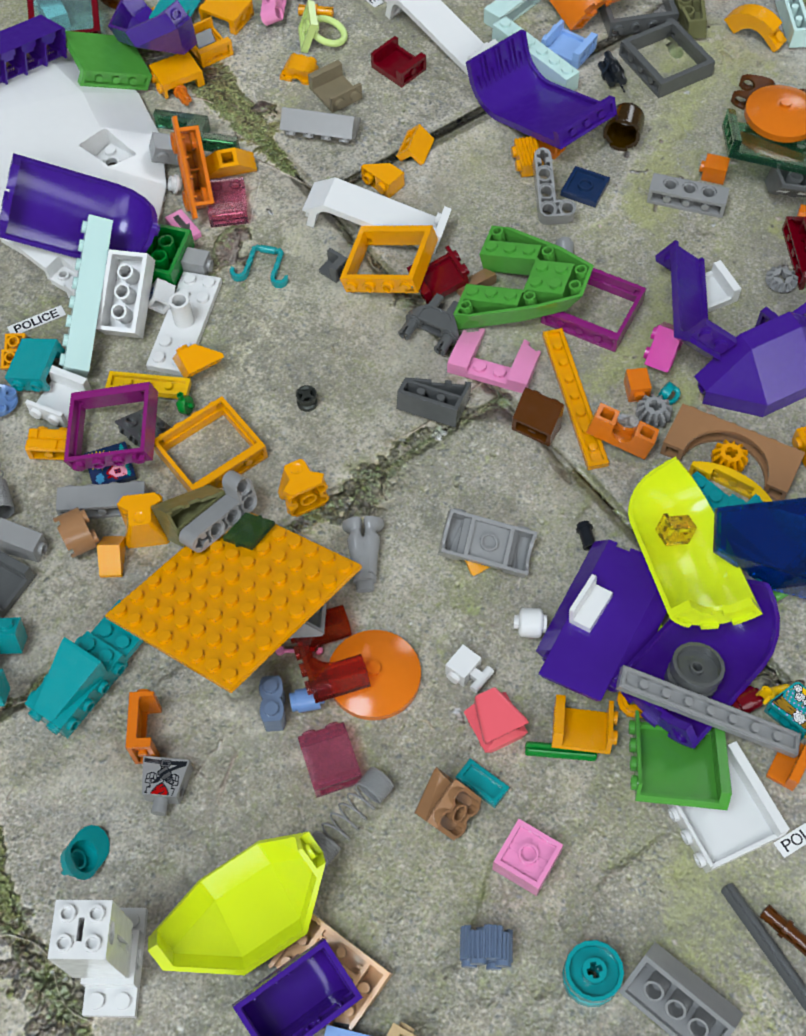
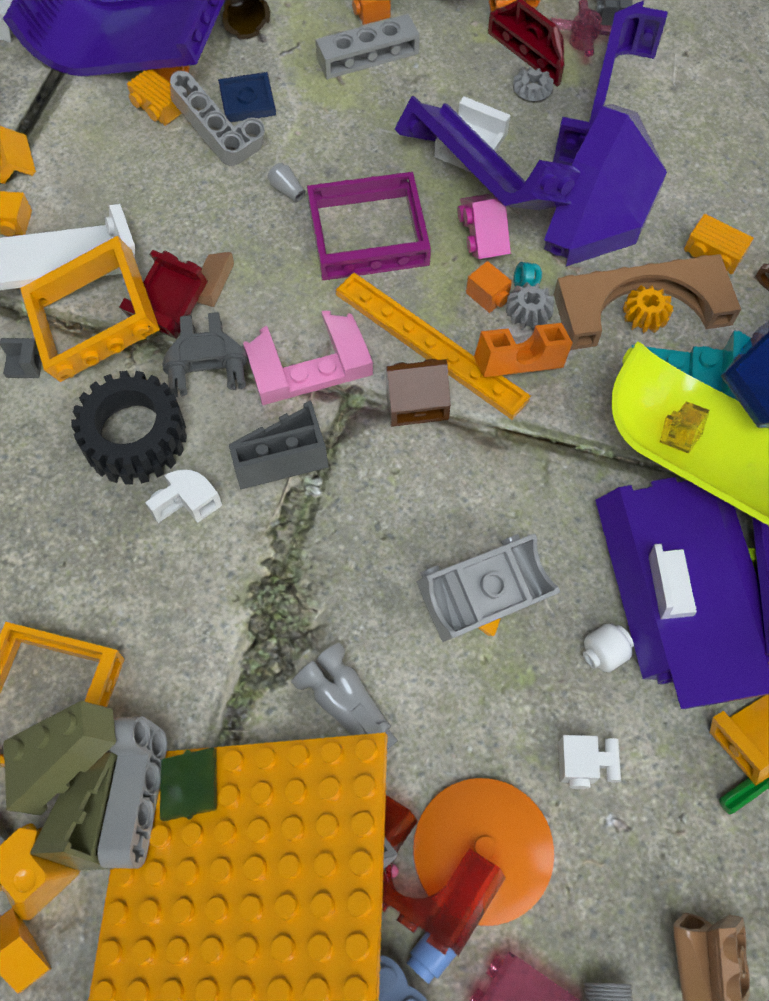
camera: 40 degrees left, 5 degrees up
(194, 468) = (52, 753): none -> olive wedge
(302, 488) = (208, 673): light orange piece -> none
(305, 393) = (113, 543): pearl dark grey wheel -> none
(364, 389) = (187, 490): none -> white brick
(367, 356) = (134, 458): none -> black tyre
(482, 783) = (714, 890): teal tile -> none
(495, 720) = (674, 802): coral piece -> none
(553, 283) = (318, 224): bright green piece -> none
(584, 529) = (576, 497): black pin -> none
(729, 478) = (678, 331): yellow slope -> none

